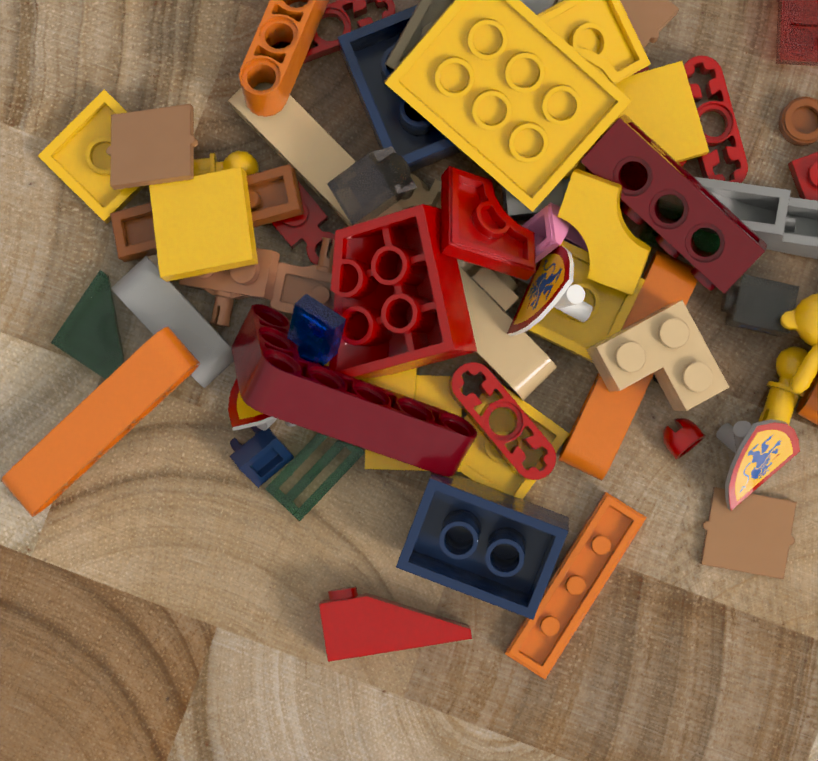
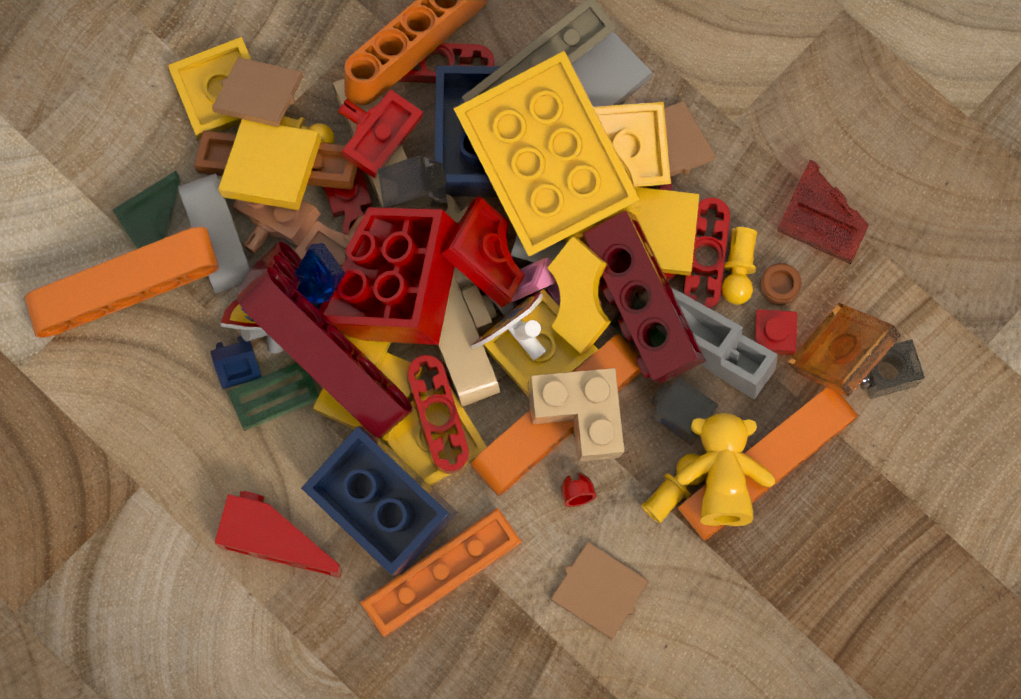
camera: 20 degrees right, 10 degrees down
(306, 137) = (379, 131): none -> red plate
(758, 455) = (629, 526): shield -> none
(760, 144) = (738, 287): none -> yellow pin

